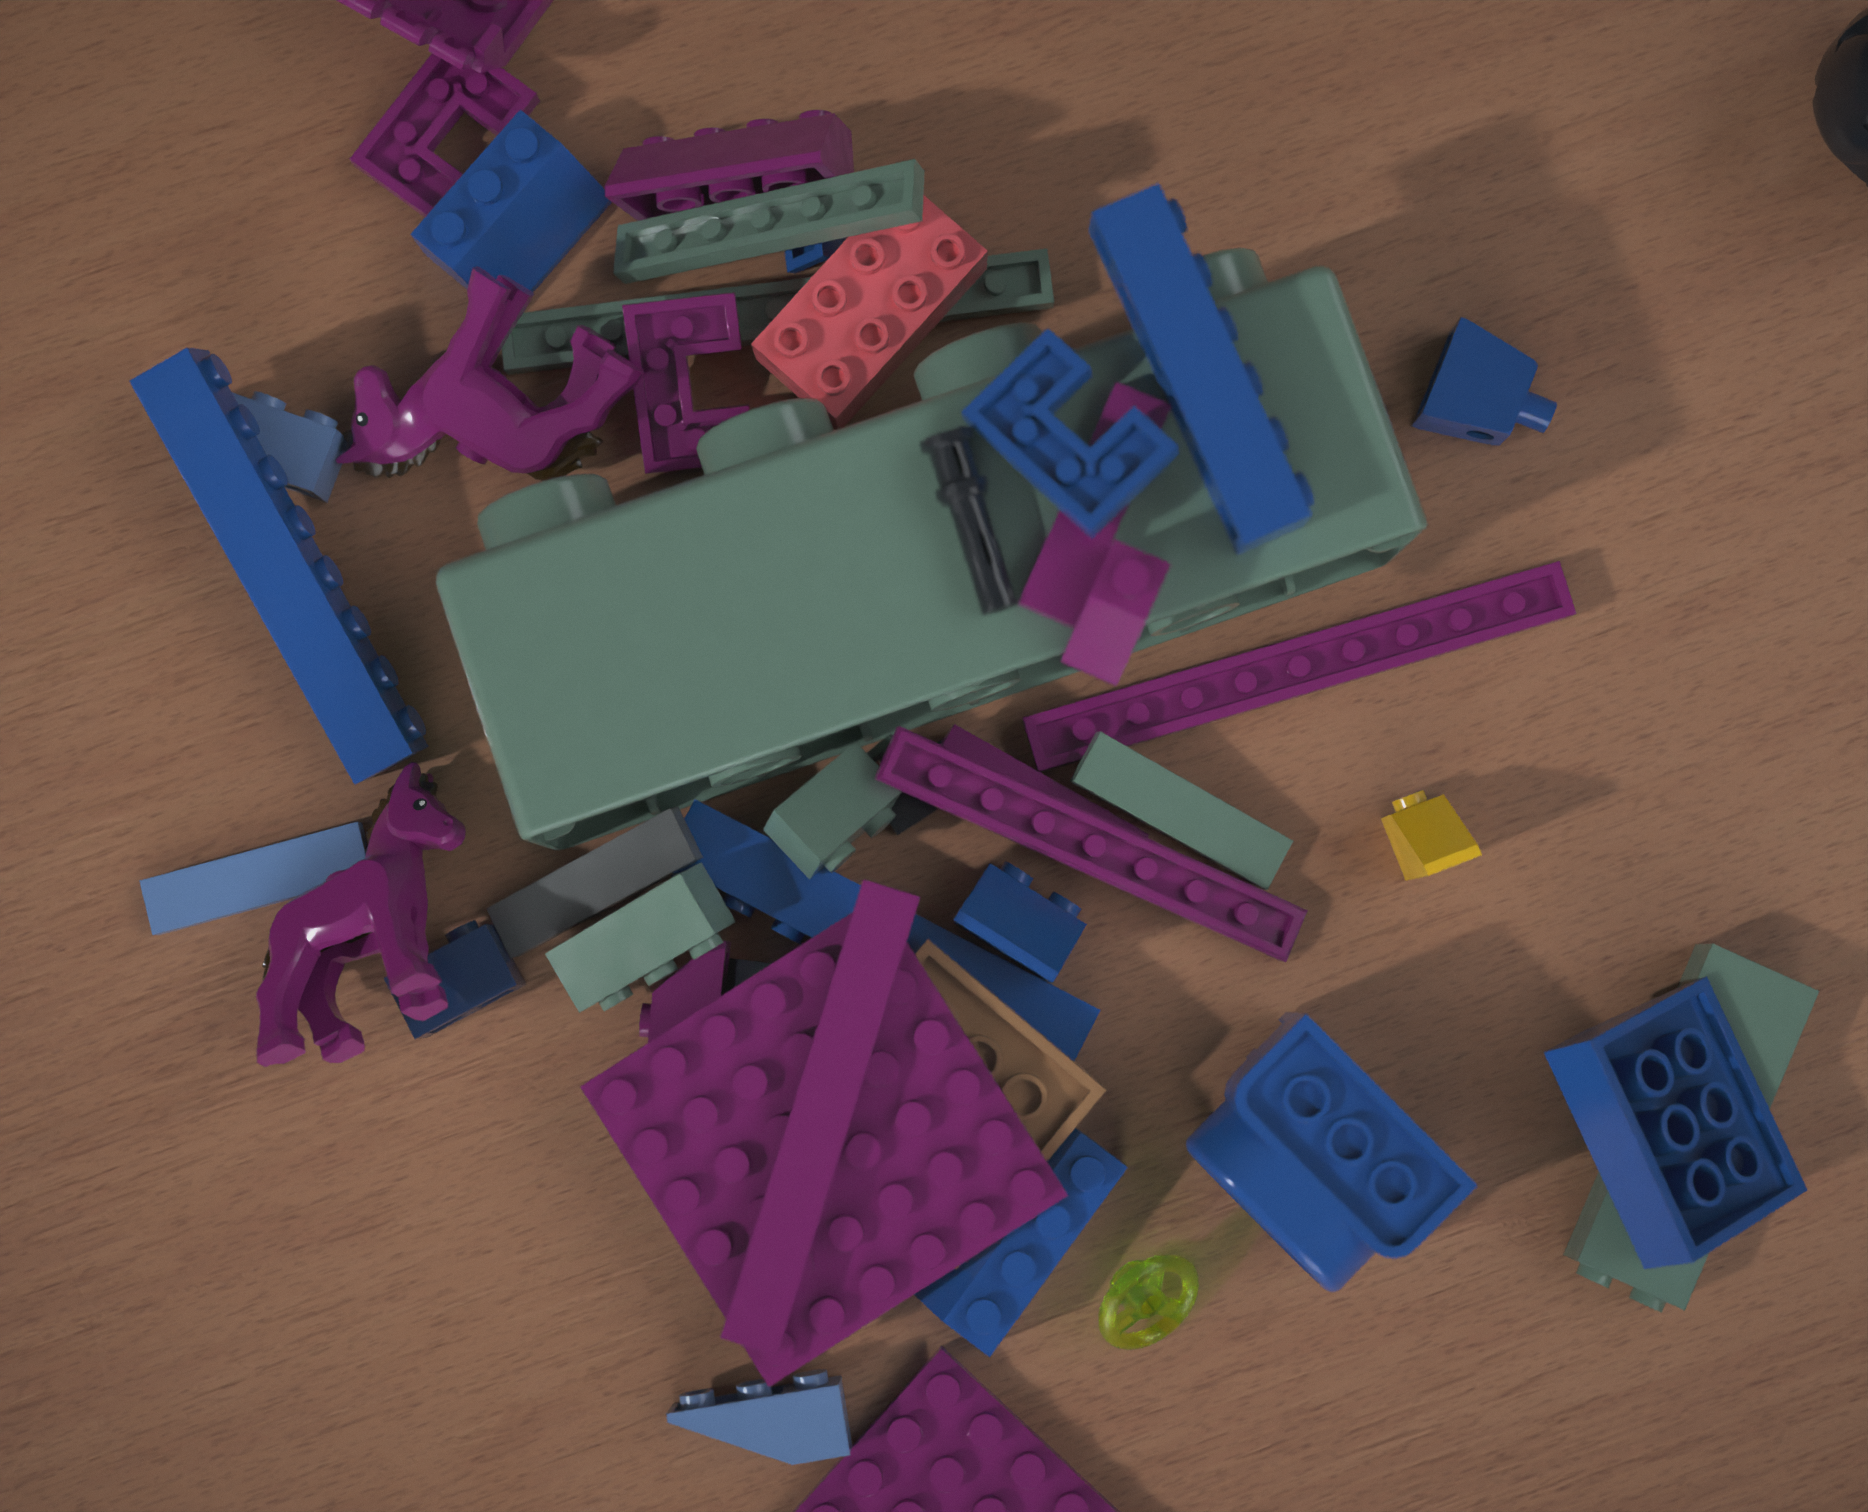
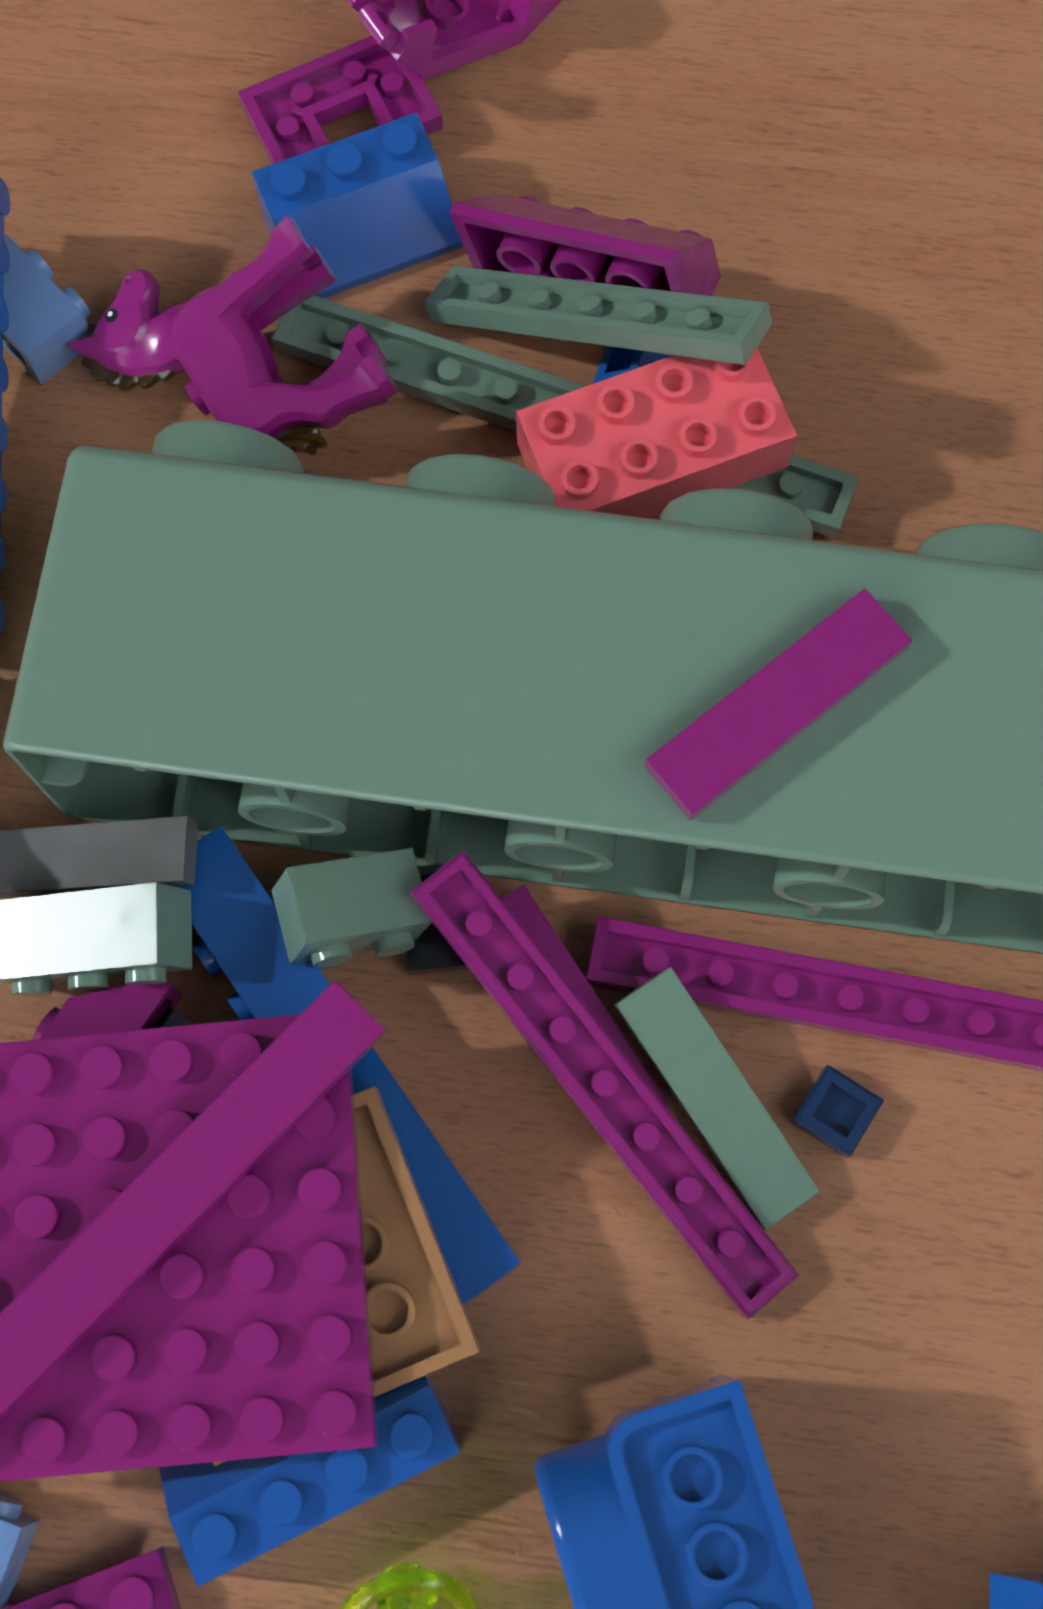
camera: 25 degrees right, 10 degrees down
(658, 343) = (430, 379): magenta plate -> none
(963, 492) = (645, 622): black pin -> none
(1020, 921) = (485, 1123): blue slope -> none
(1080, 480) = (775, 664): blue plate -> none
(1115, 612) = (745, 818): magenta slope -> none
(1200, 369) = (962, 621): blue brick -> none
(1276, 772) = (837, 1111): none -> dark blue tile
(1428, 835) = (970, 1260): yellow slope -> none

